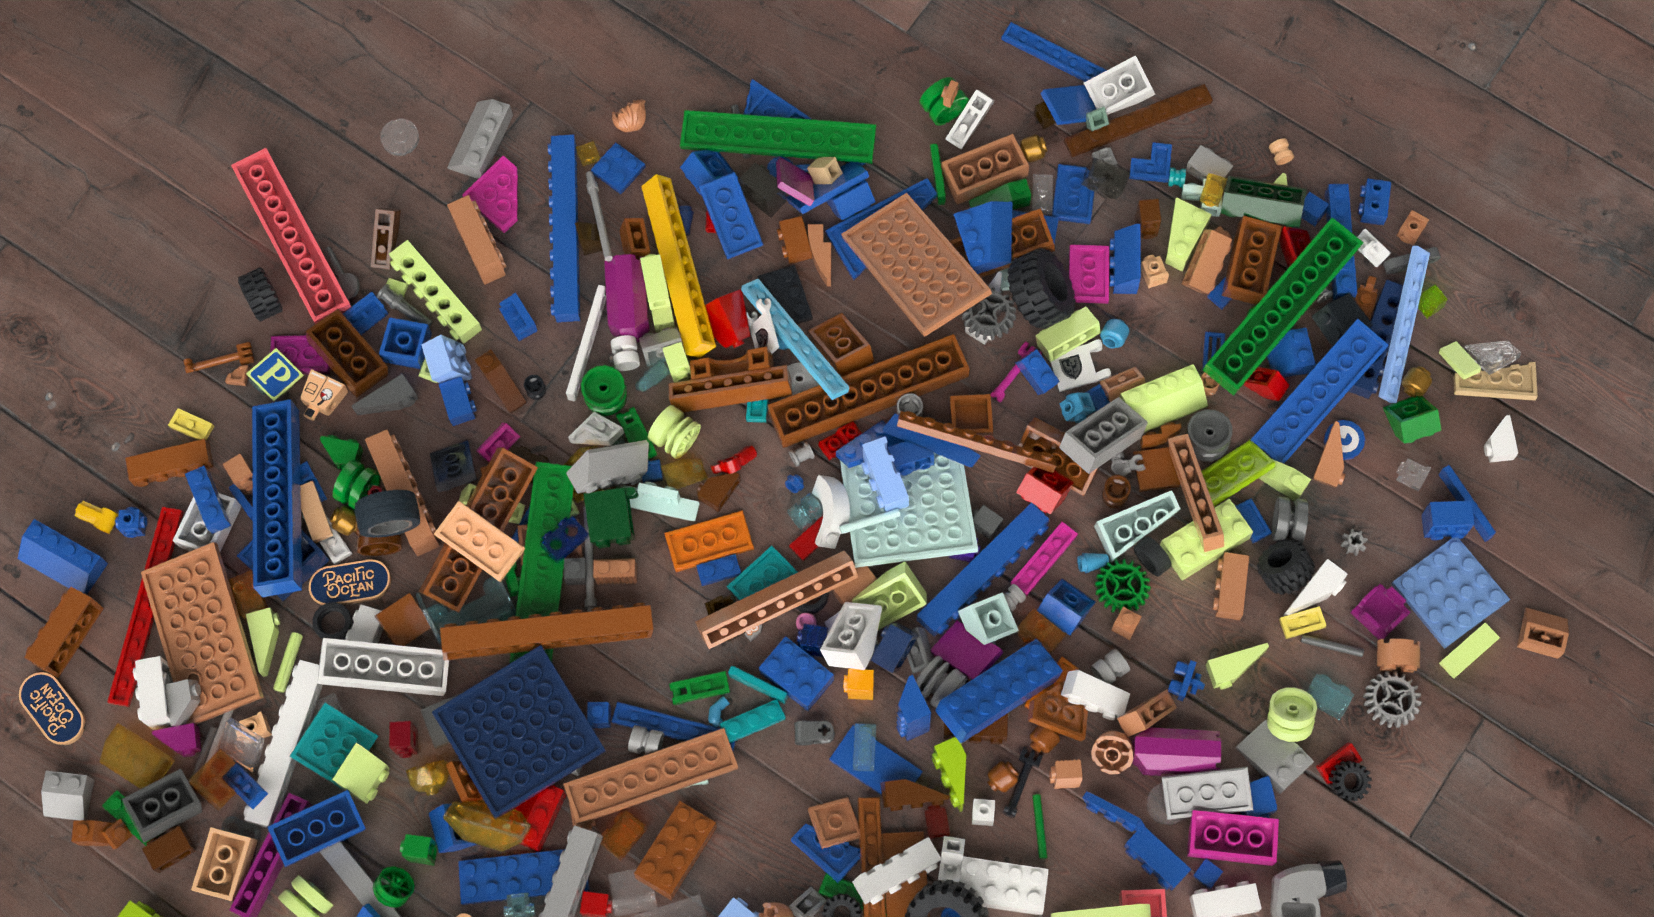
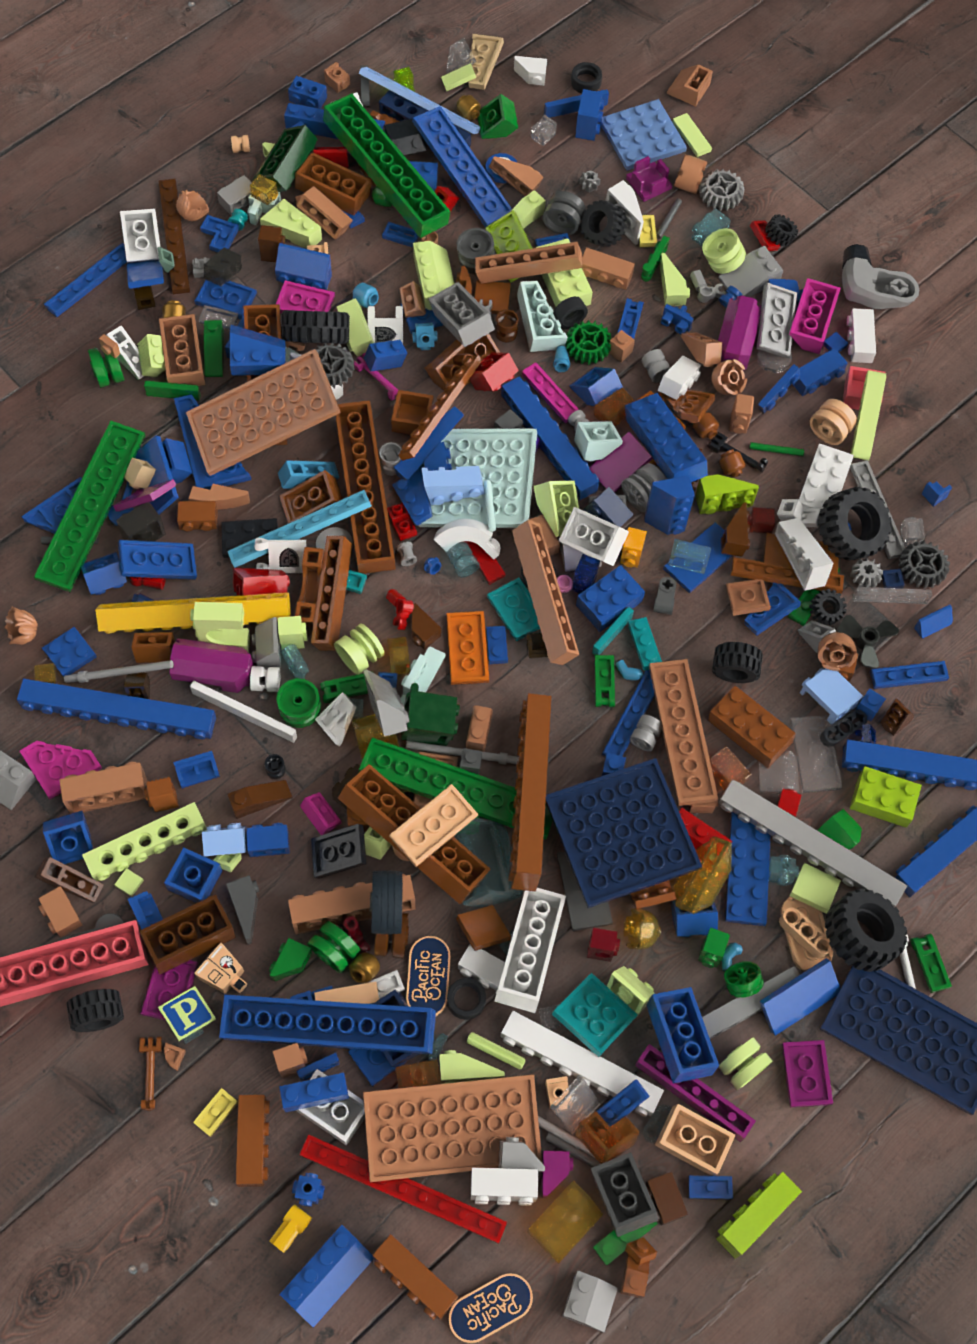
camera: 85 degrees left, 5 degrees down
(186, 899) = (710, 1187): none -> blue plate
(283, 607) = (438, 1046): none -> clear light blue tile
(352, 239) = (60, 912): none -> nougat brick
(397, 302) = (146, 877): dark grey pin -> none
(423, 870) = (731, 951): none -> dark azure arm
(425, 224) = (68, 837): none -> blue slope
(480, 291) = (161, 794): none -> dark orange brick
(568, 543) = (446, 757): clear blue brick -> none
(743, 820) = (737, 662): none -> black tyre
(871, 329) = (297, 472): none -> dark azure slope
(970, 140) = (151, 355): none -> yellowish green brick
(983, 812) = (763, 480): white brick -> none
(1082, 881) = (833, 421): none -> light nougat wheel
(1169, 627) = (631, 317): none -> blue plate
(1177, 126) = (191, 206): none -> nougat hair
(1231, 736) = (732, 292): none -> blue wheel
(1233, 706) = (705, 292): none -> light grey bar
(1278, 643) = (654, 259): none -> green plate
(1520, 494) = (586, 68): none -> black tyre

